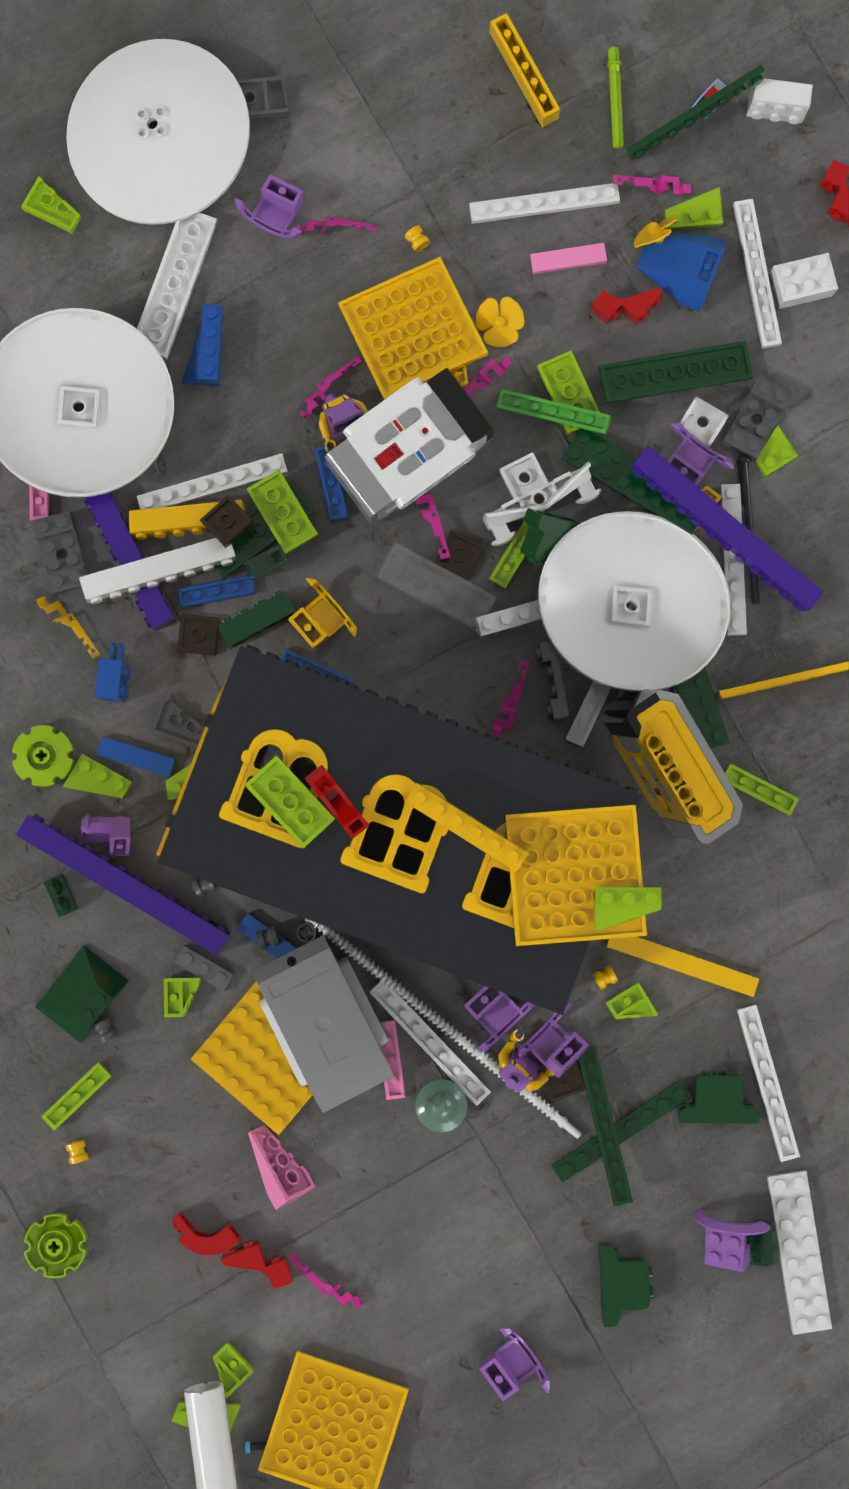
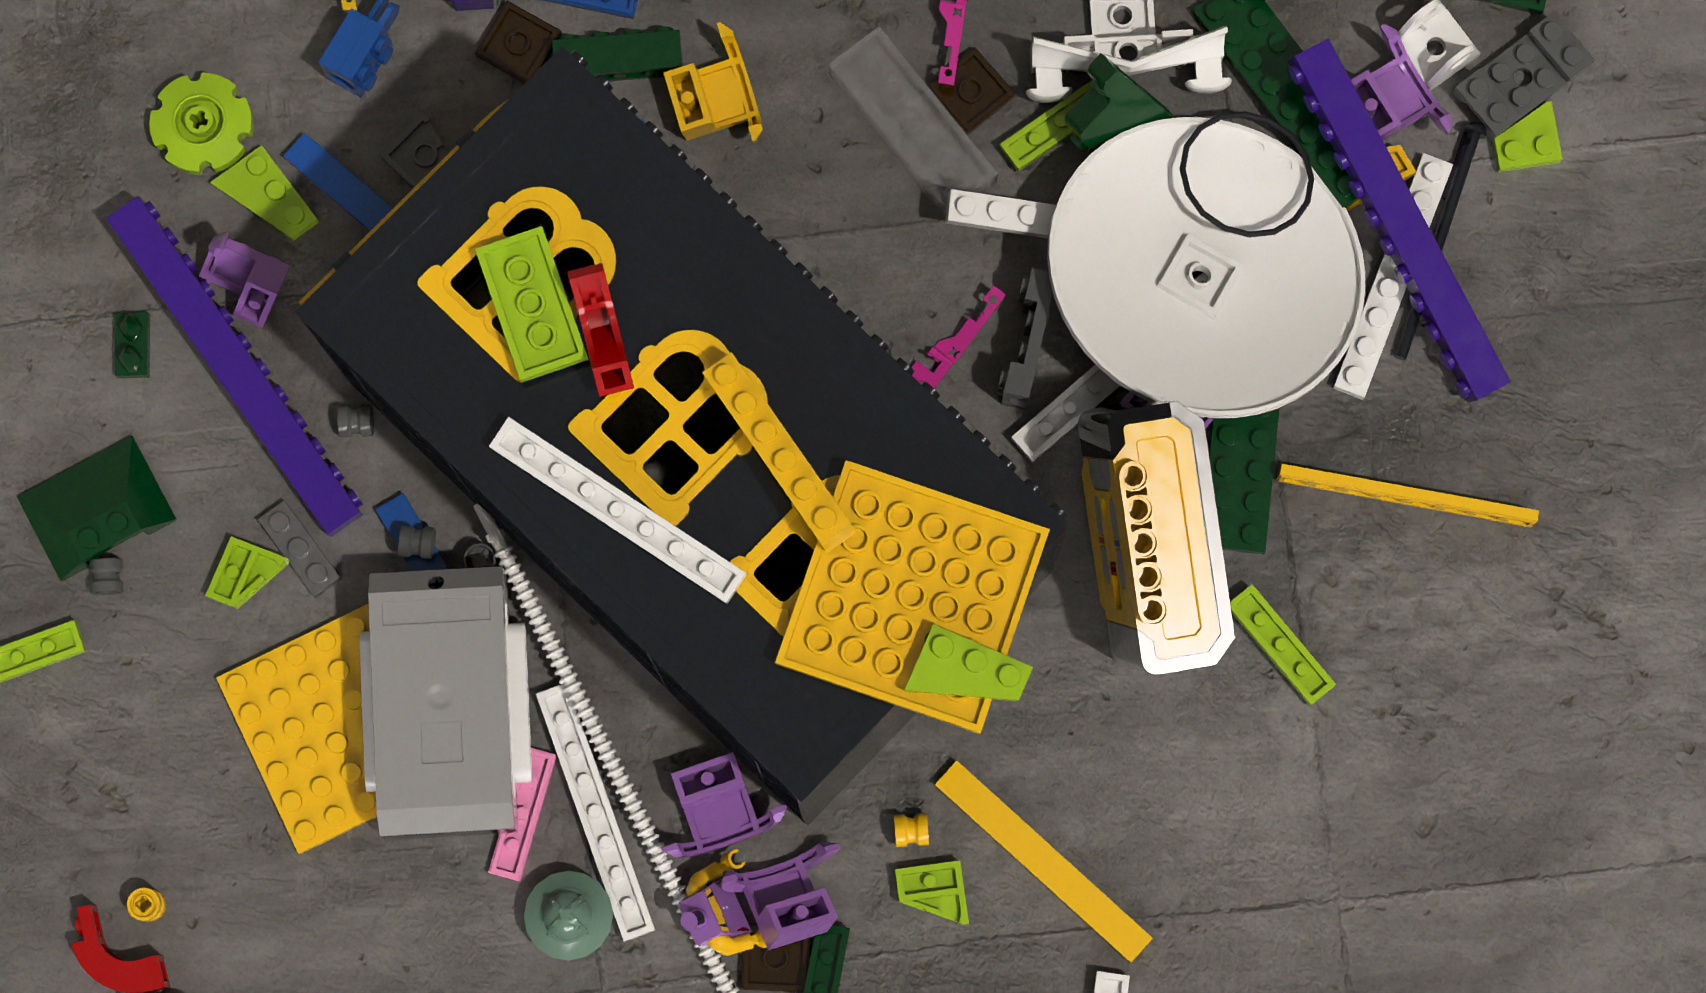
camera: 25 degrees right, 5 degrees down
(210, 1196) = (153, 904): none -> yellow wheel
(280, 1173) = (274, 915): bright pink wedge -> none
(390, 897) = (618, 510): none -> white plate
(640, 505) = (1210, 218): none -> black piece

